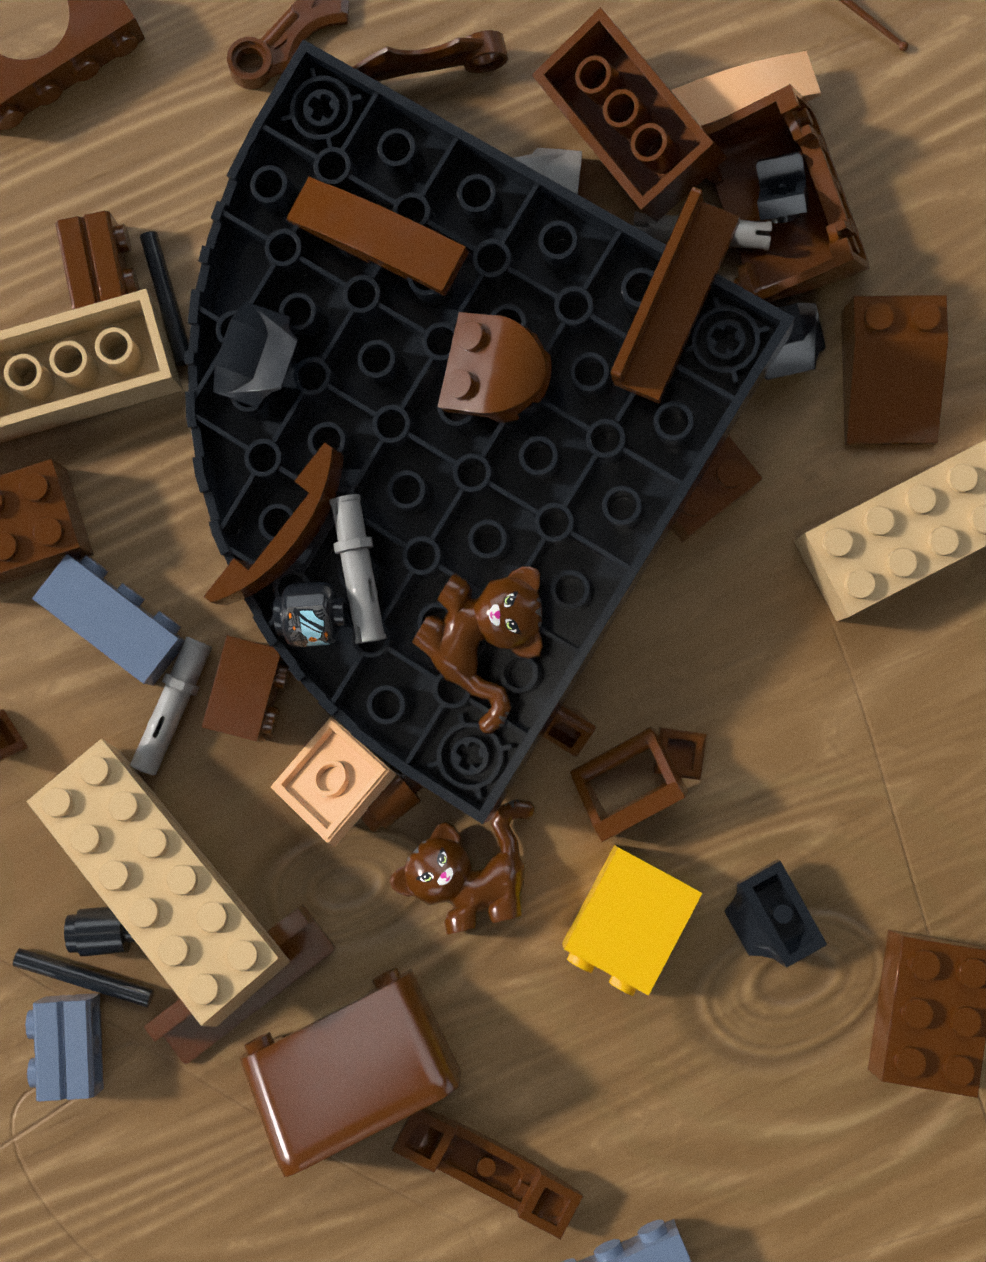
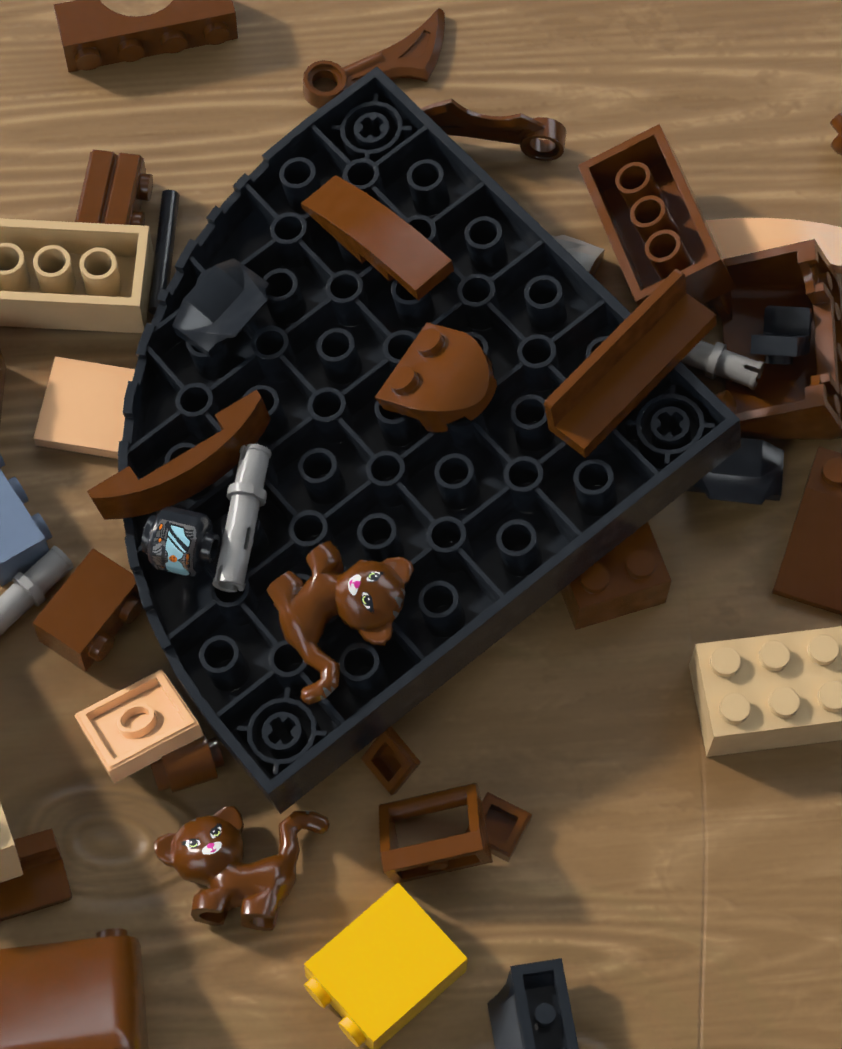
camera: 20 degrees right, 20 degrees down
(157, 485) = (83, 408): none -> light nougat tile

